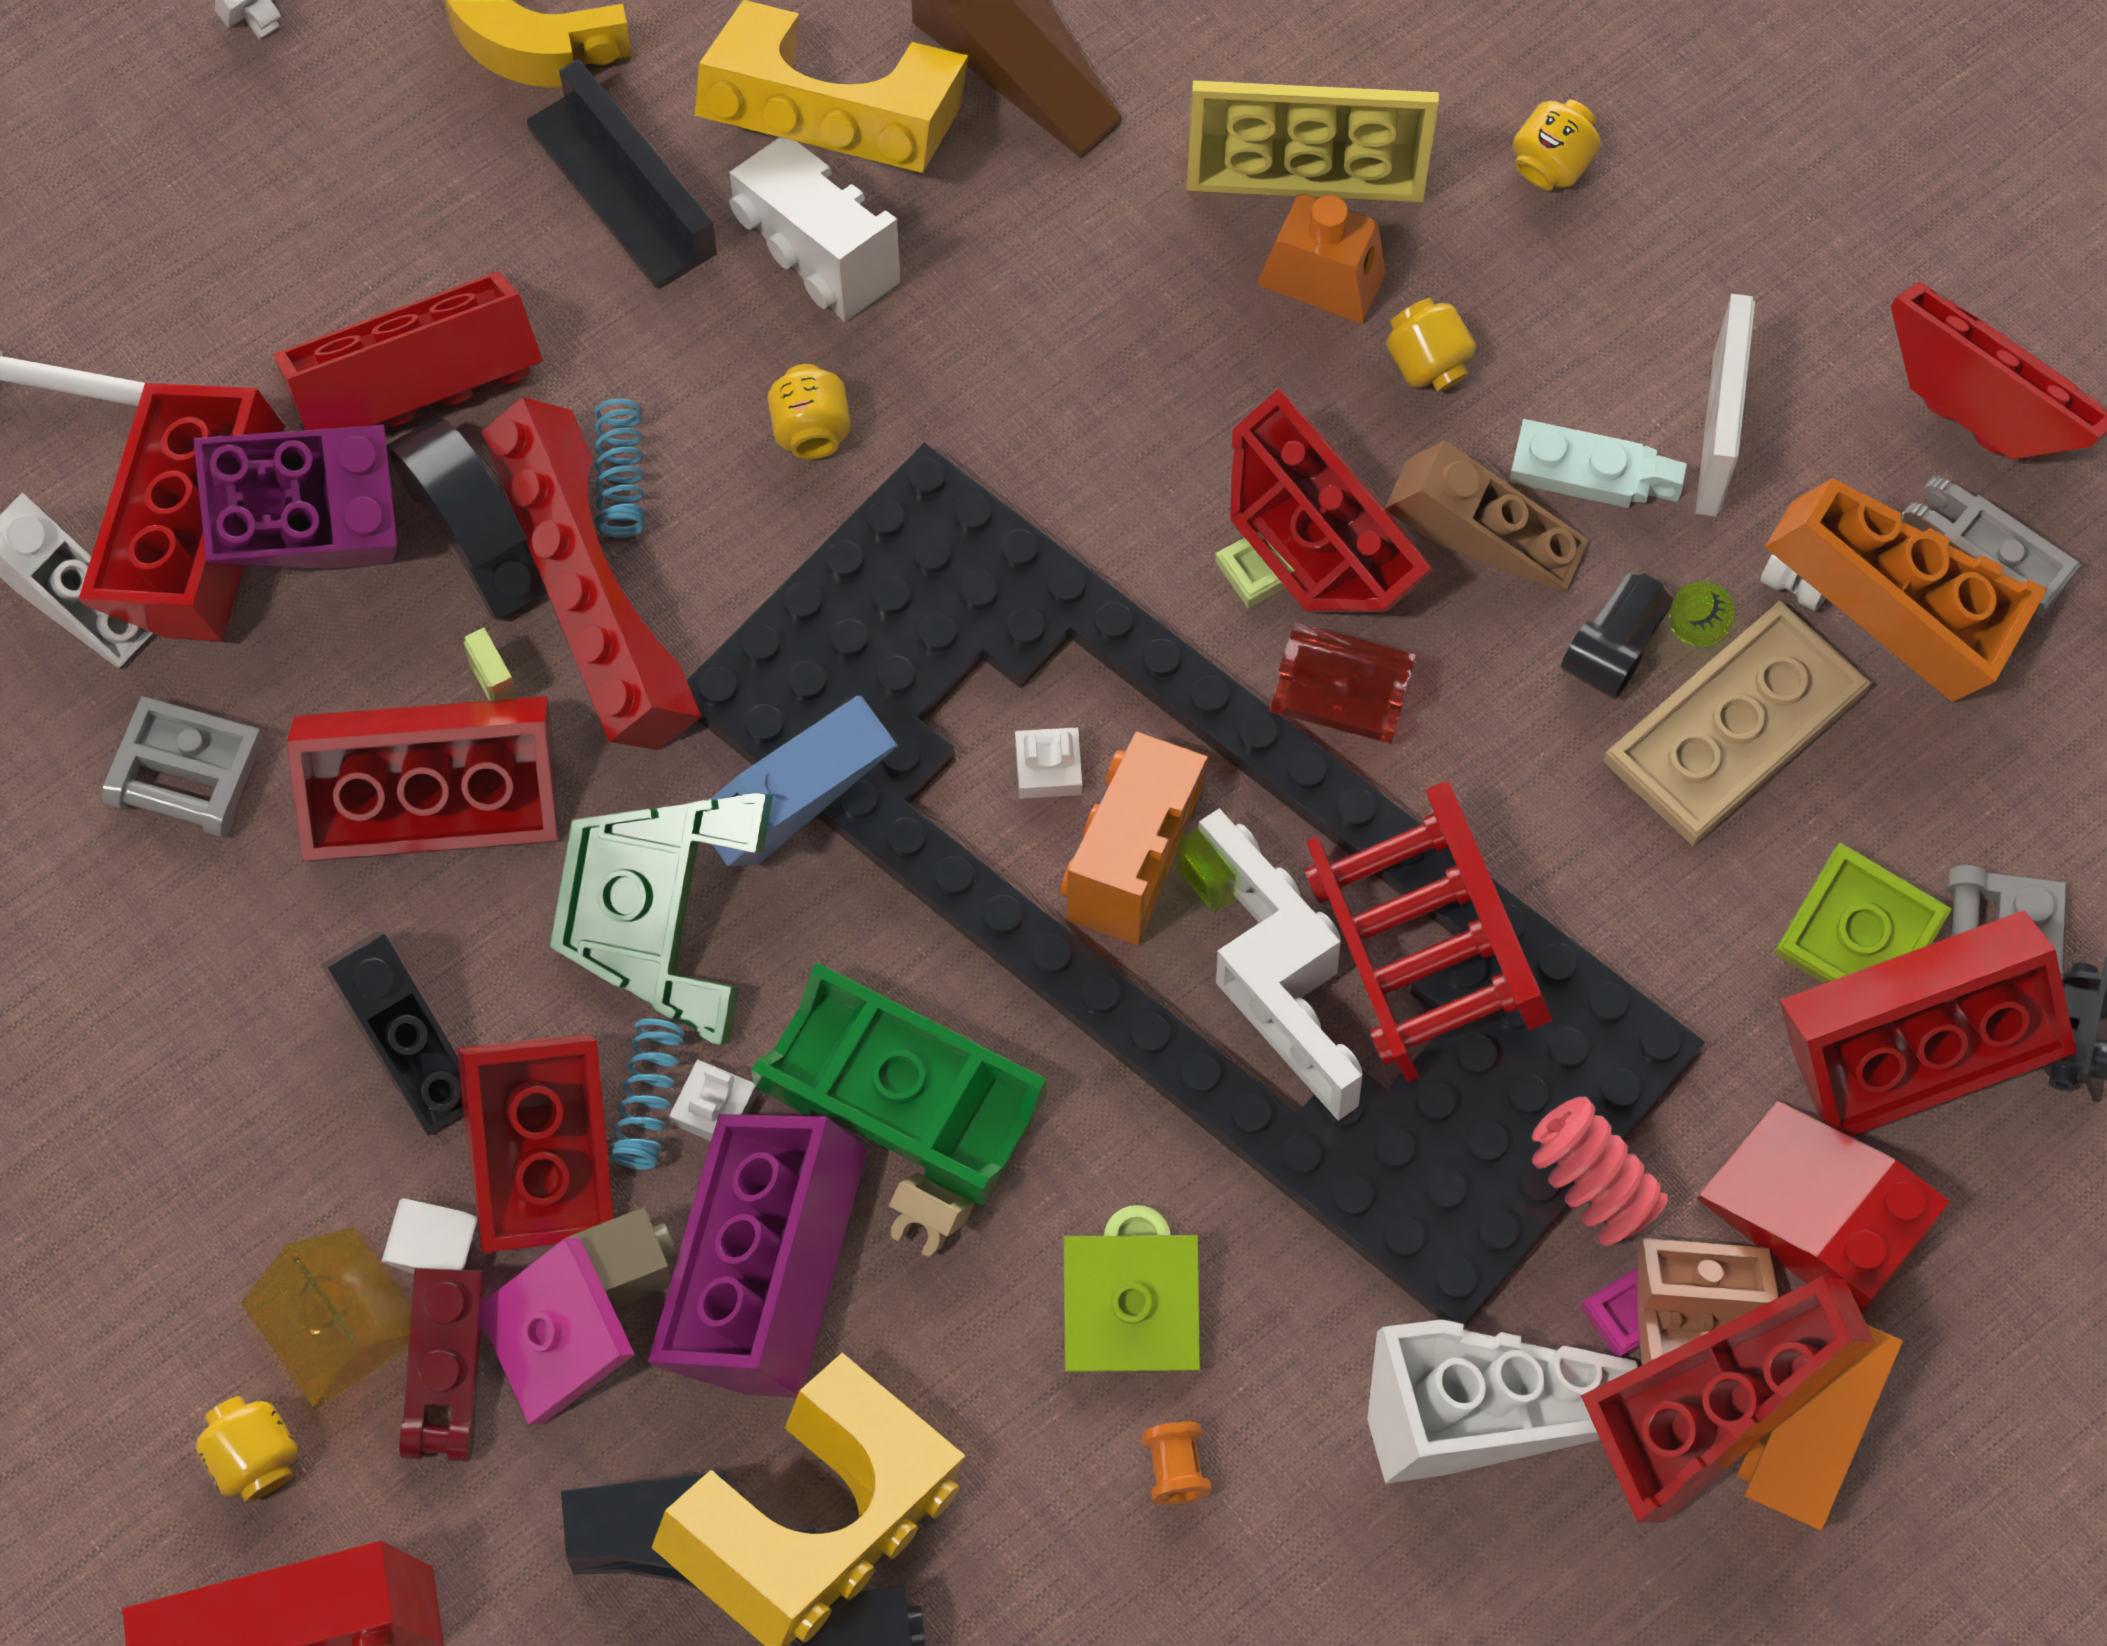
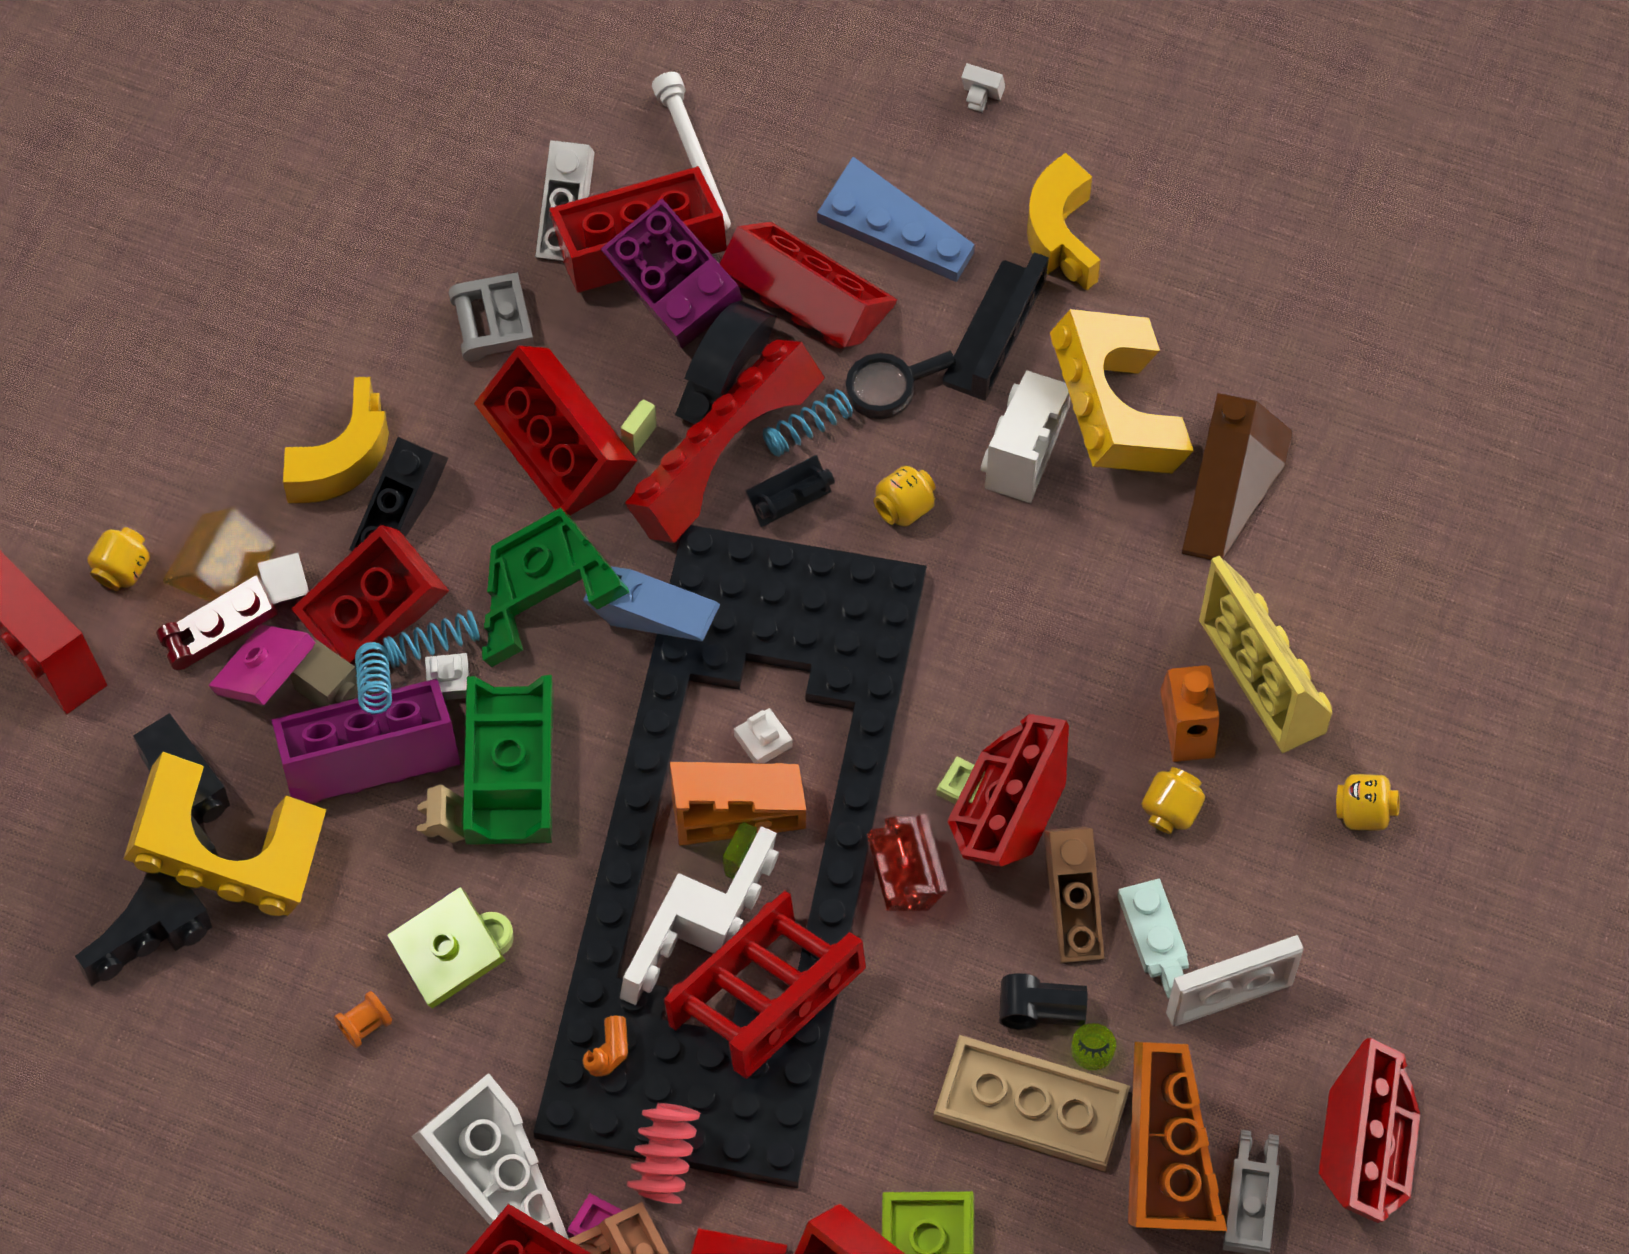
camera: 60 degrees right, 5 degrees down
(291, 1096) = (345, 462): none -> yellow arch
(371, 216) = (888, 219): none -> medium blue wing
(620, 347) = (884, 384): none -> piece
(640, 1187) = (362, 671): none -> medium azure piece
(708, 543) = (789, 490): none -> black hinge
(1415, 1166) = (612, 1052): none -> orange arm

